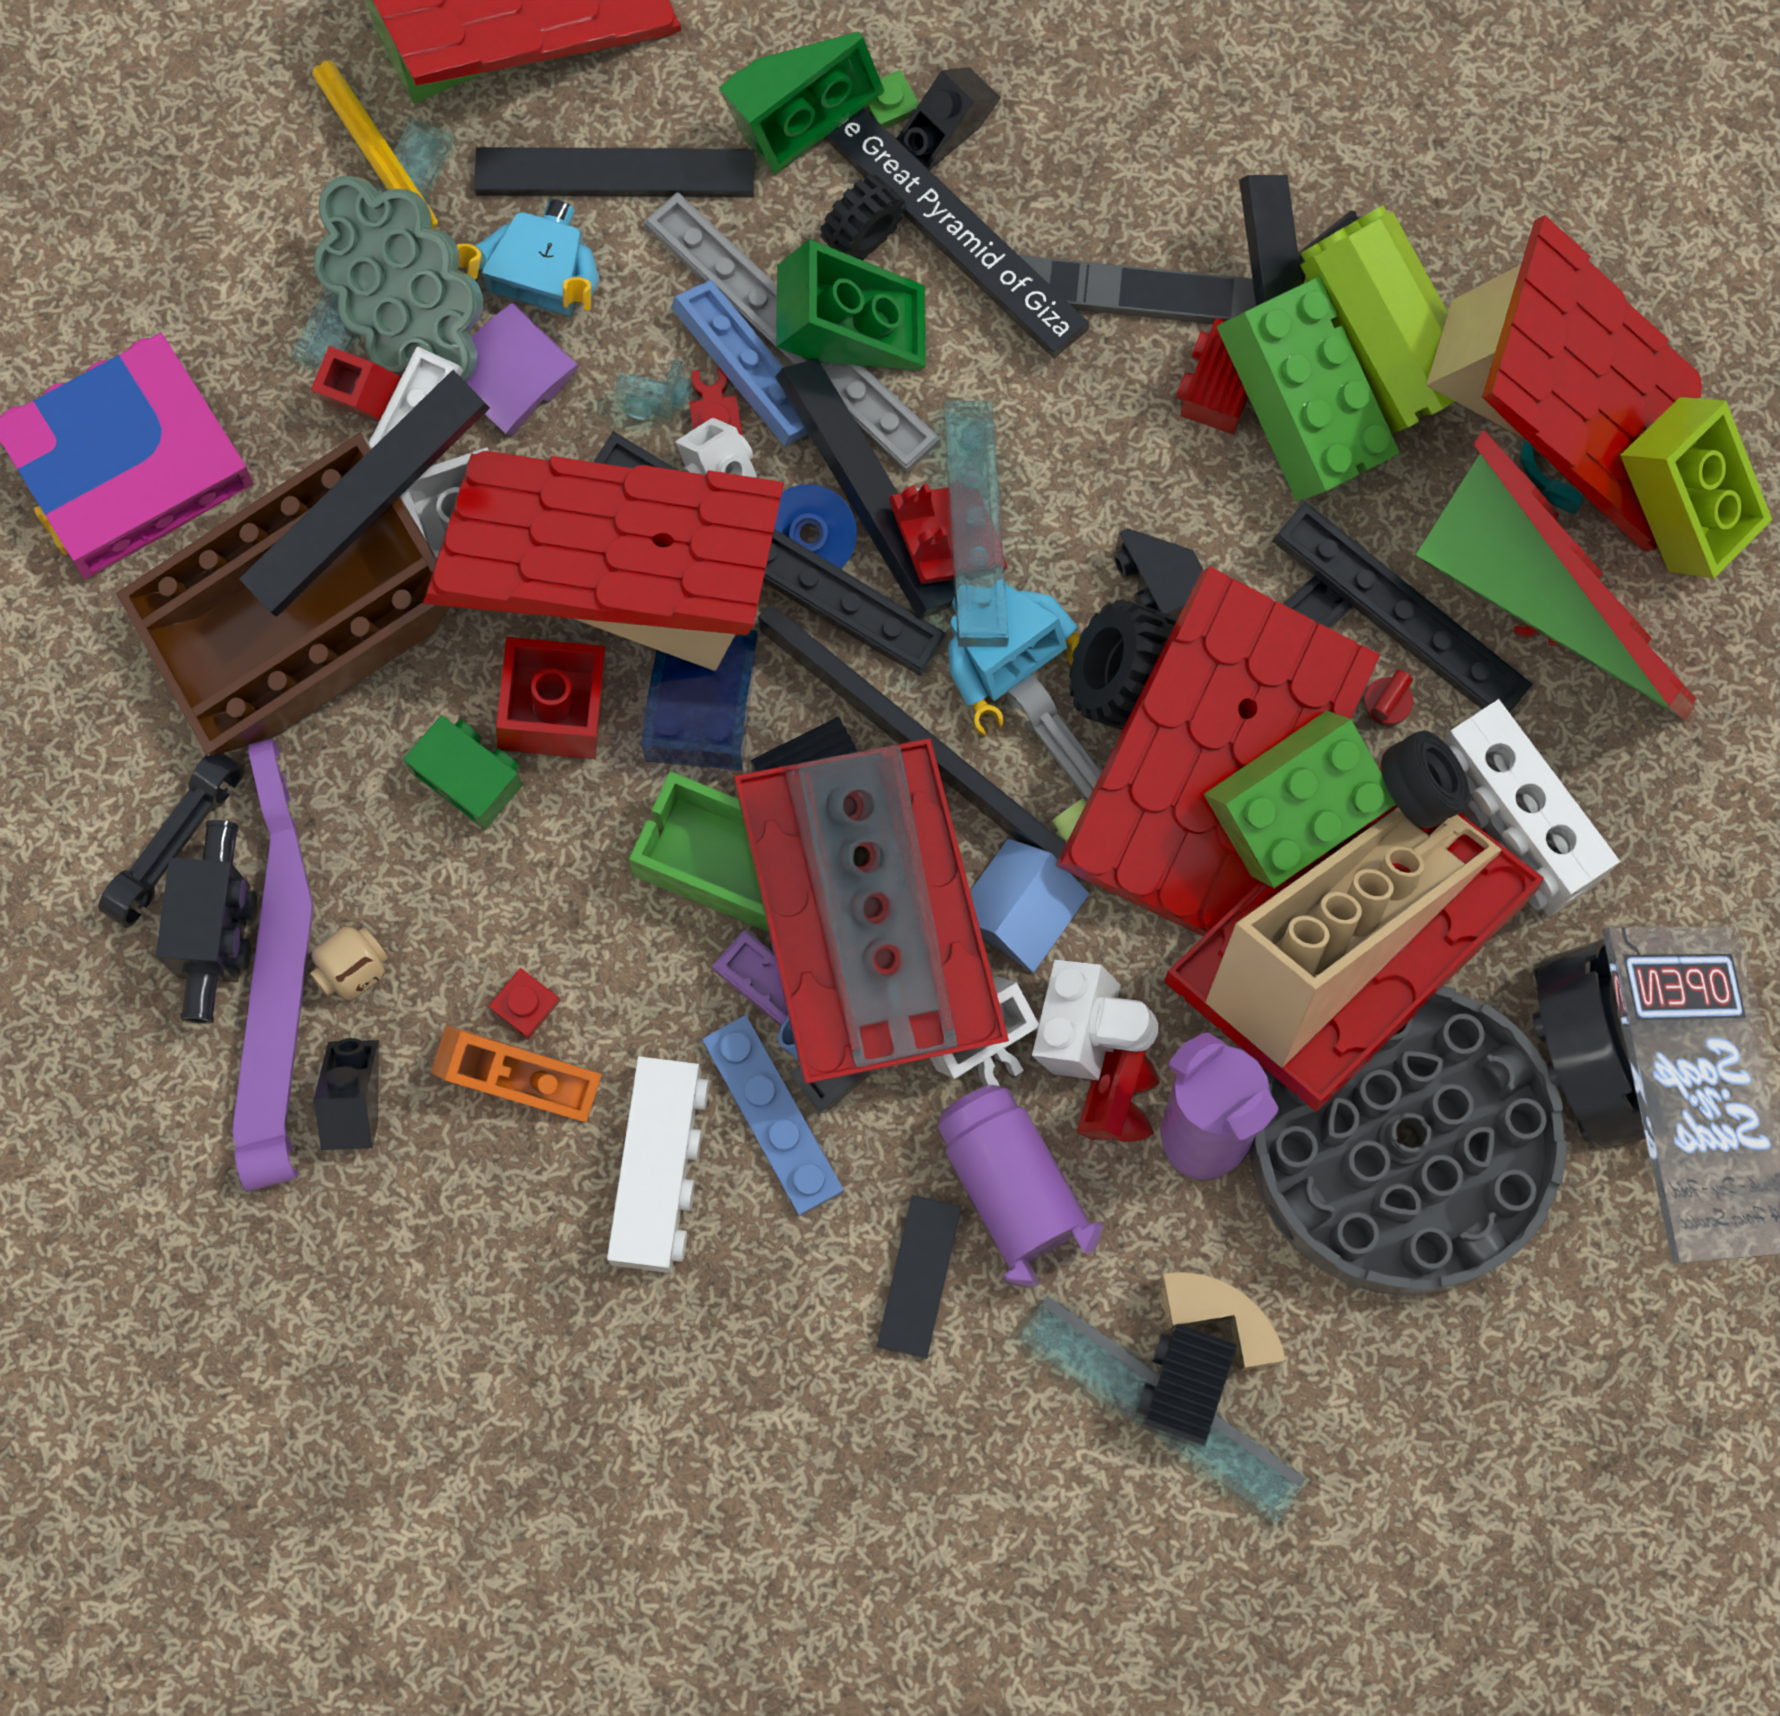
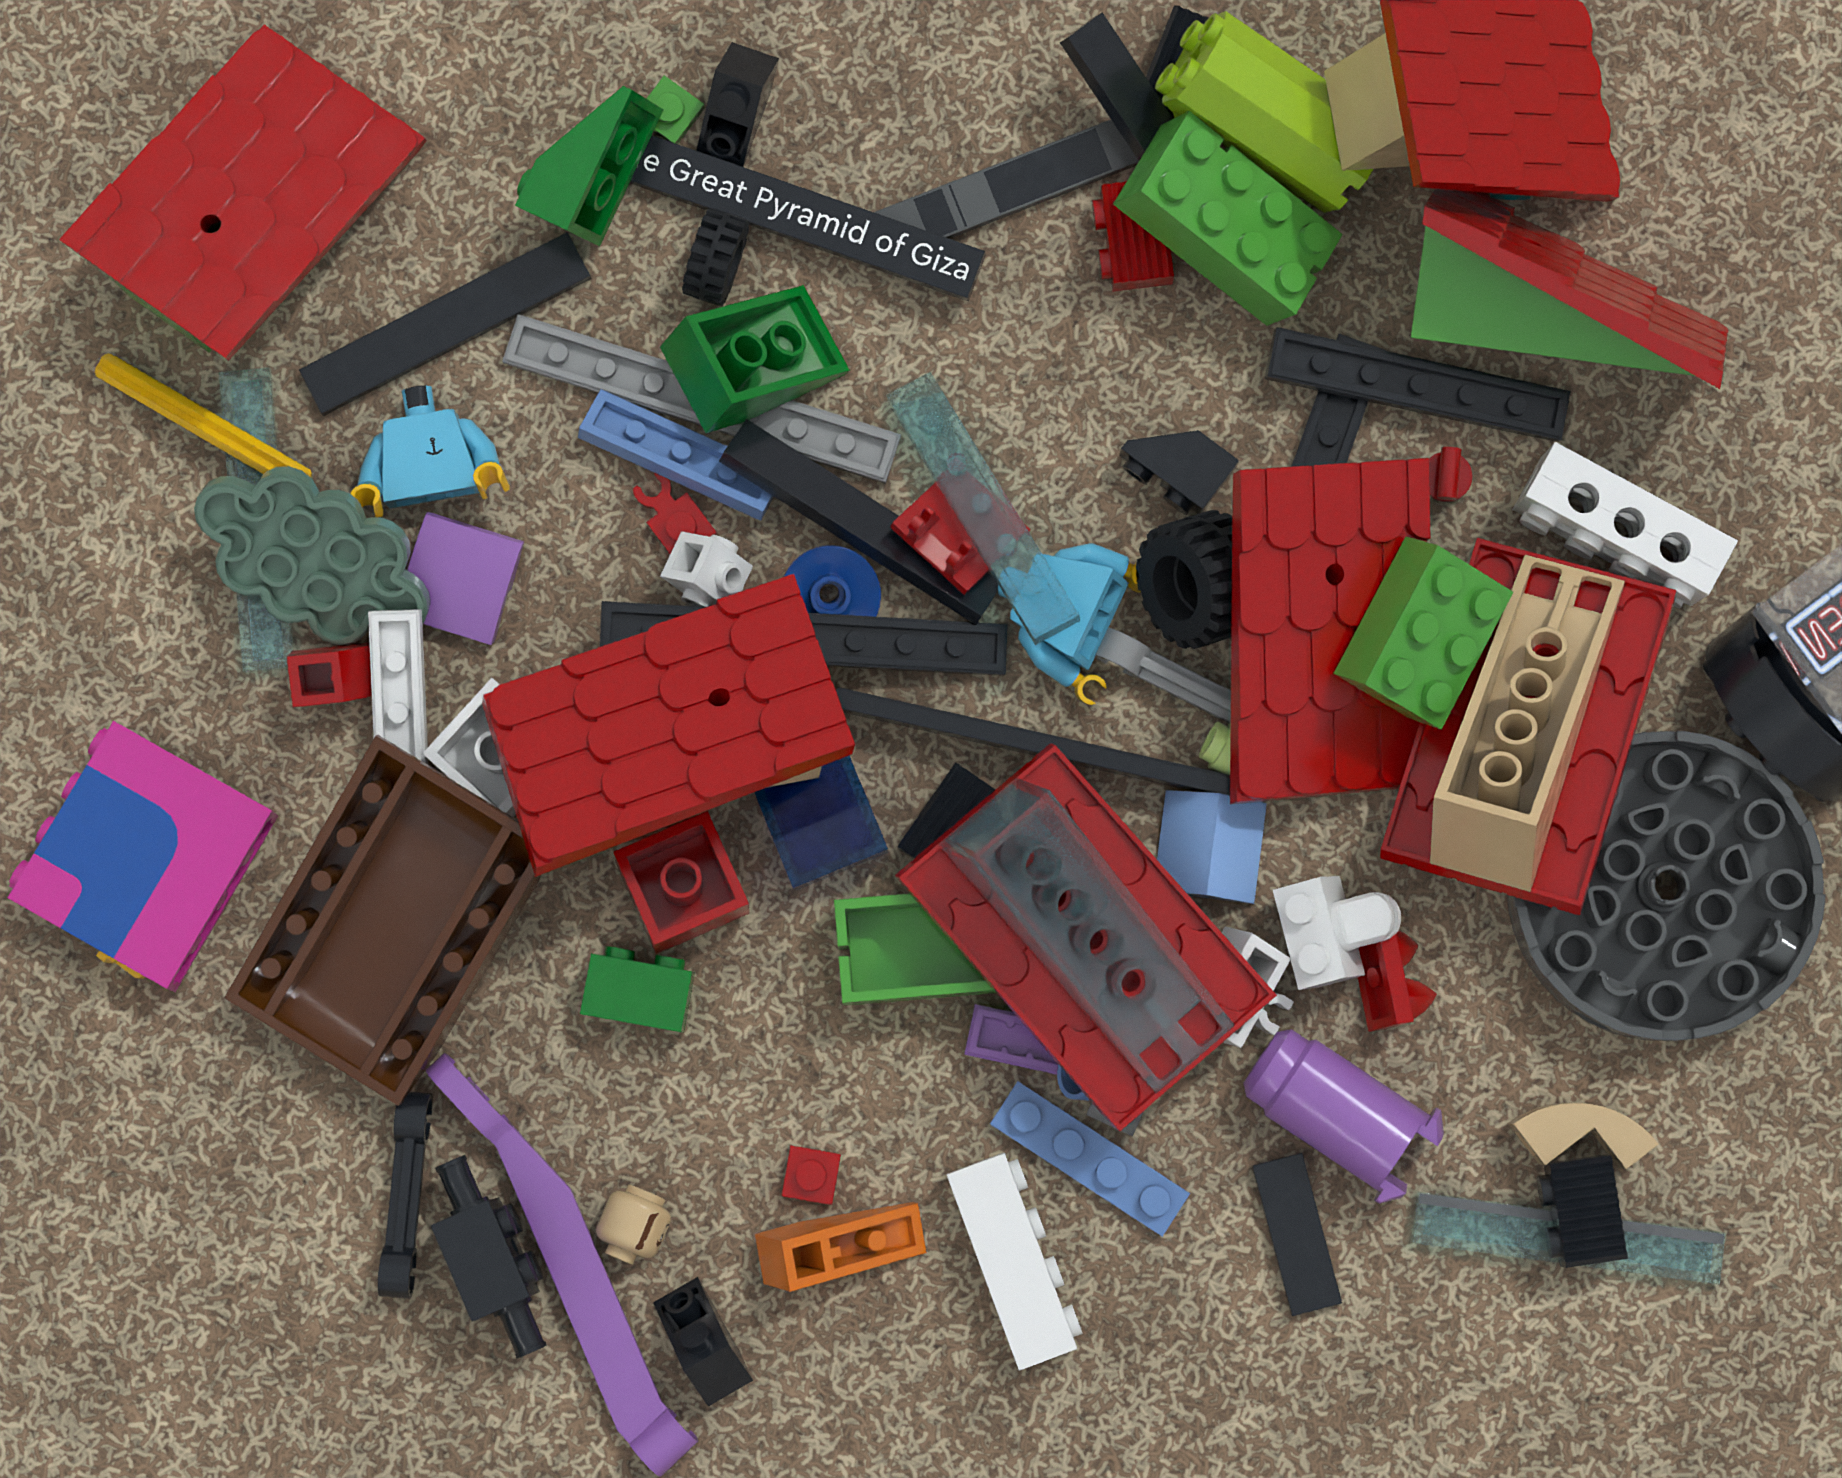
camera: 20 degrees left, 10 degrees up
(364, 493) = (415, 793): black tile -> none
(648, 397) = (602, 542): clear light blue bracket -> none
(1214, 1108) = (1490, 960): medium lavender piece -> none
(1425, 779) = (1527, 556): black tyre -> none
(1696, 487) = (1635, 131): lime brick -> none

